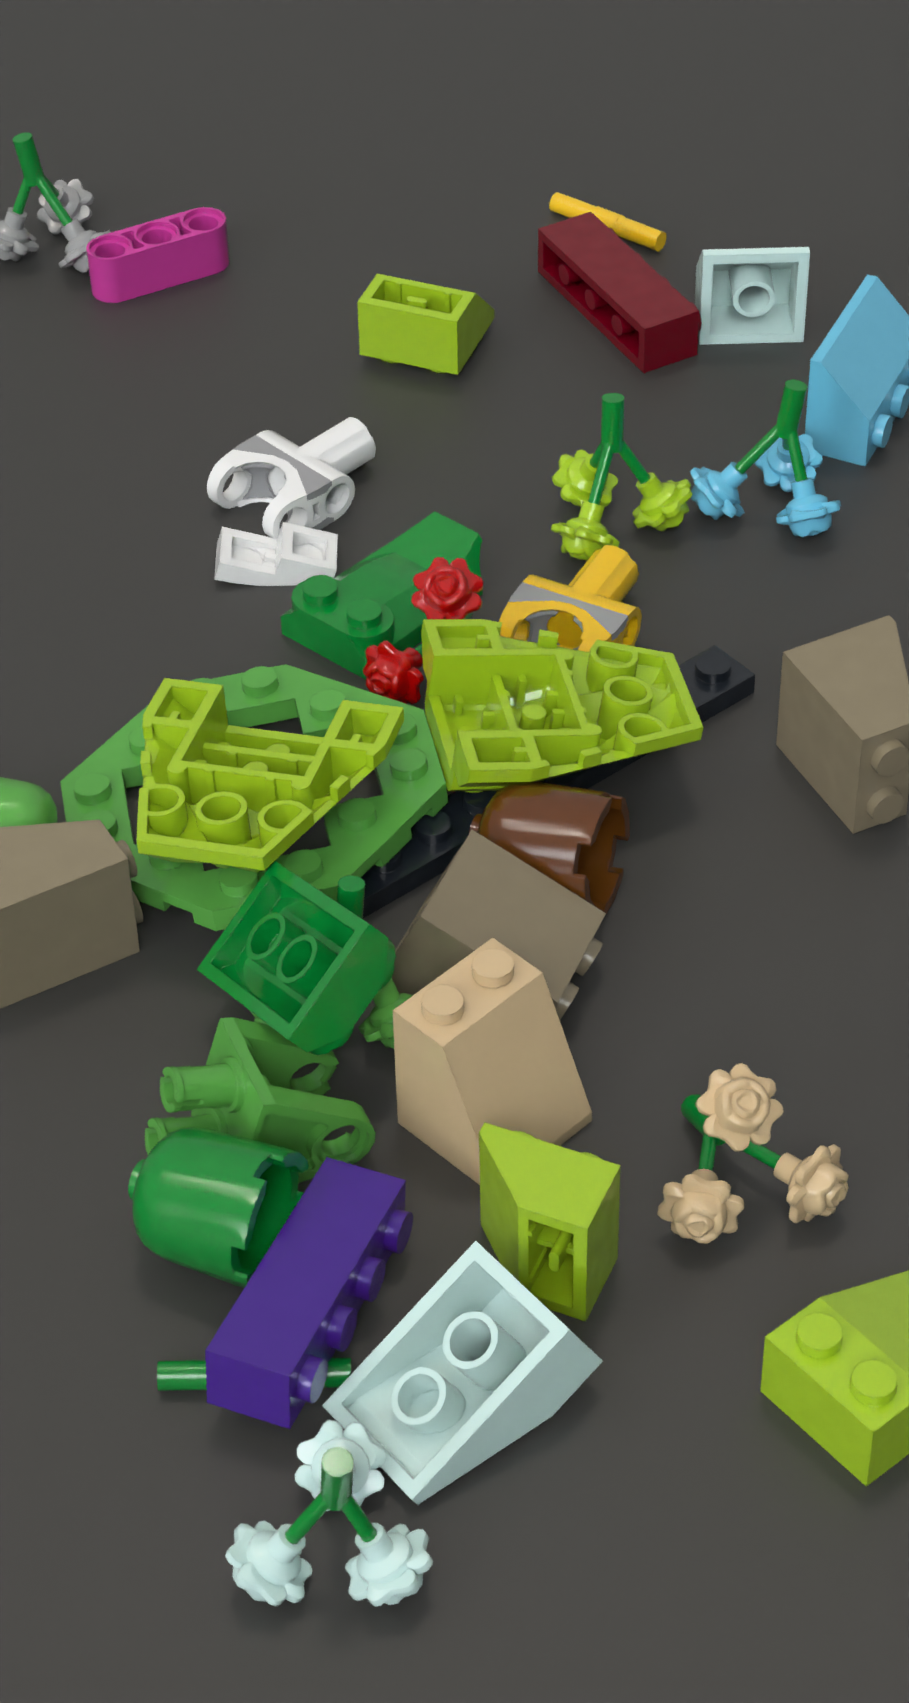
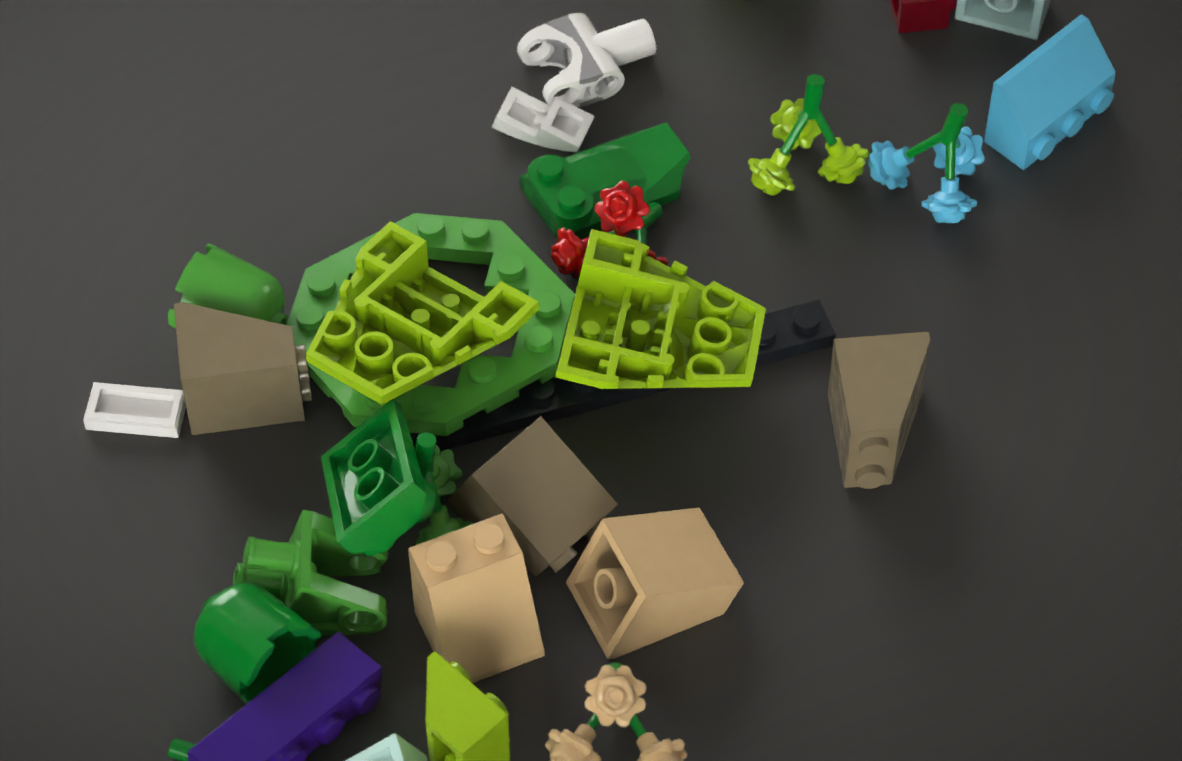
camera: 20 degrees right, 10 degrees up
(561, 834) = (612, 437): reddish brown cylinder -> none
(579, 611) = (728, 242): yellow connector -> none
(686, 987) = (652, 578): none -> tan slope

